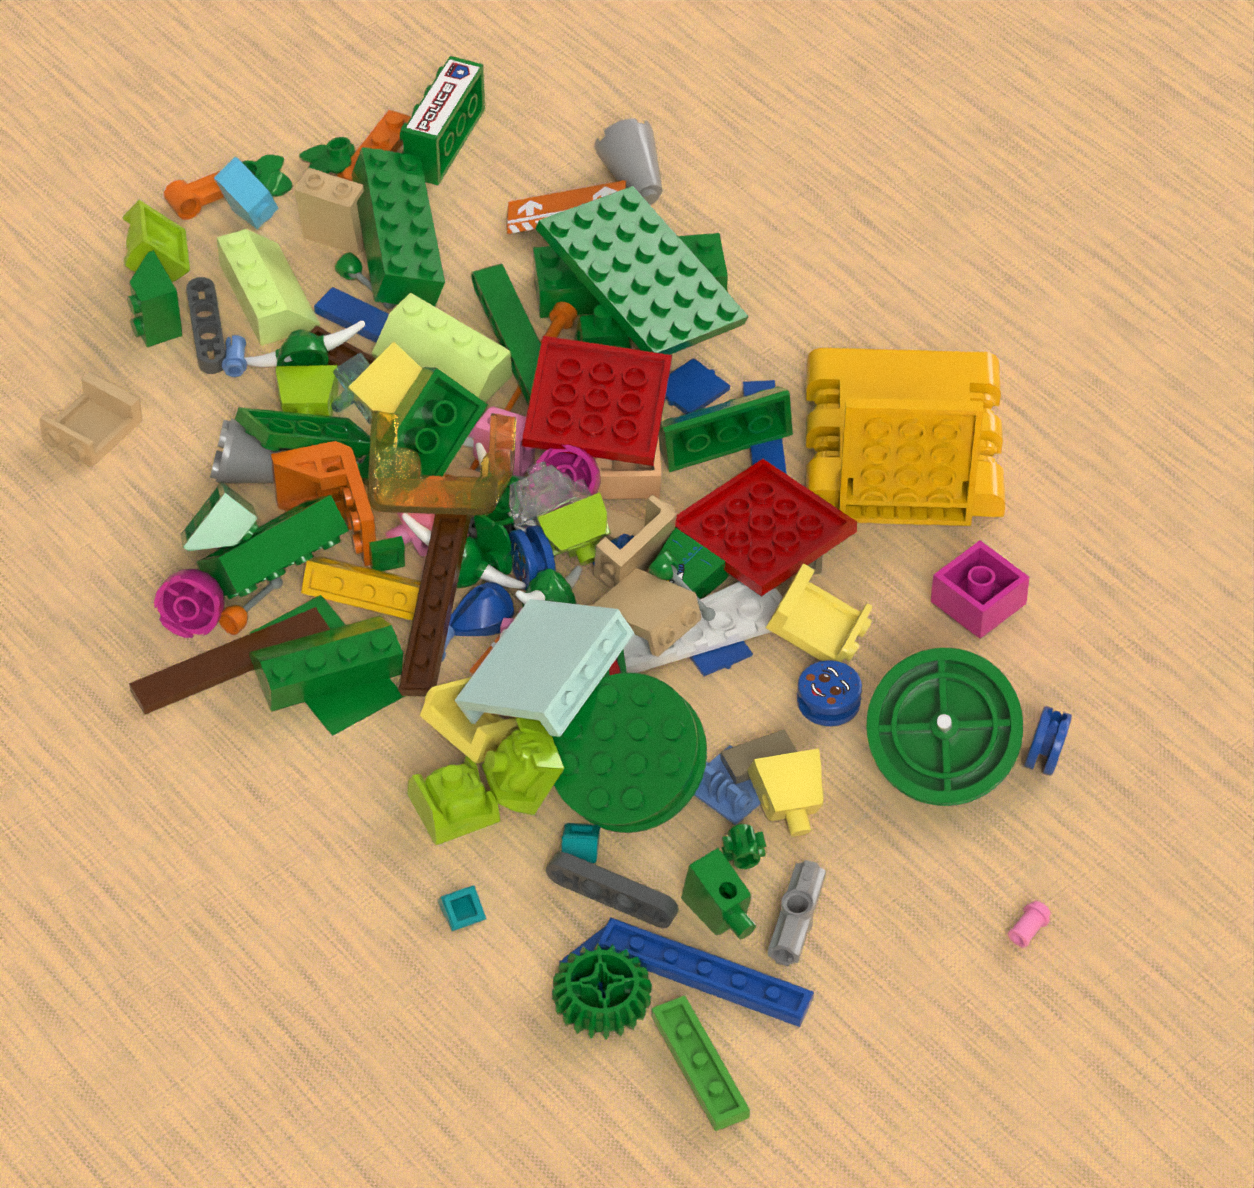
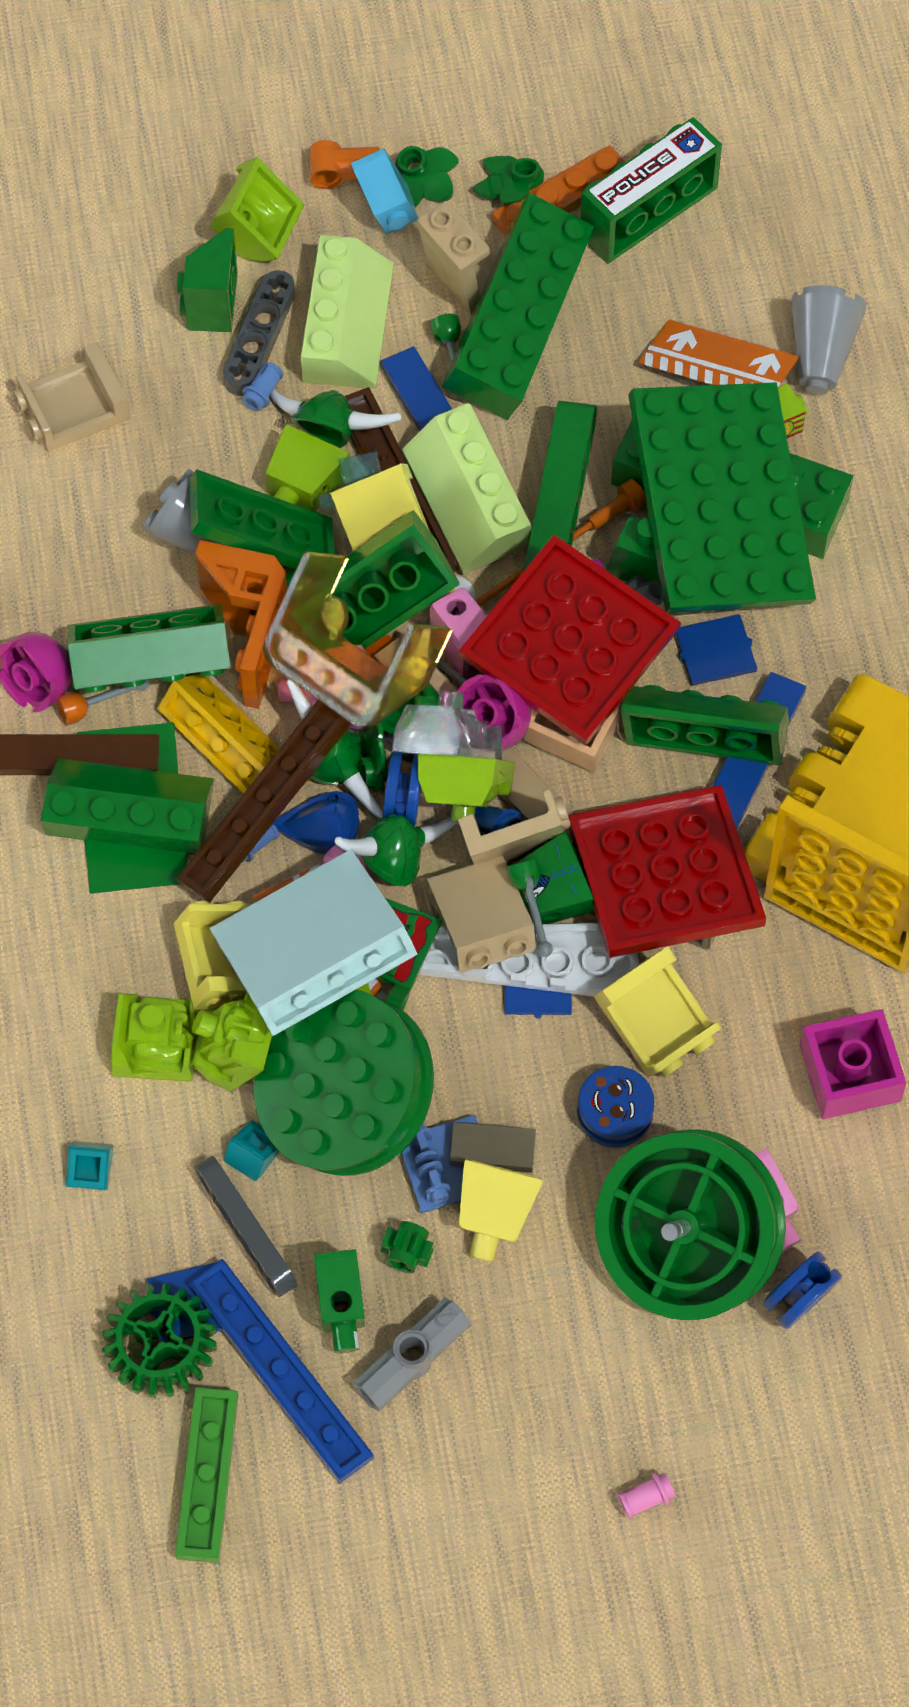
camera: 30 degrees right, 15 degrees up
(220, 521) = (106, 597): slope -> none
(387, 554) = (266, 707): green tile -> none

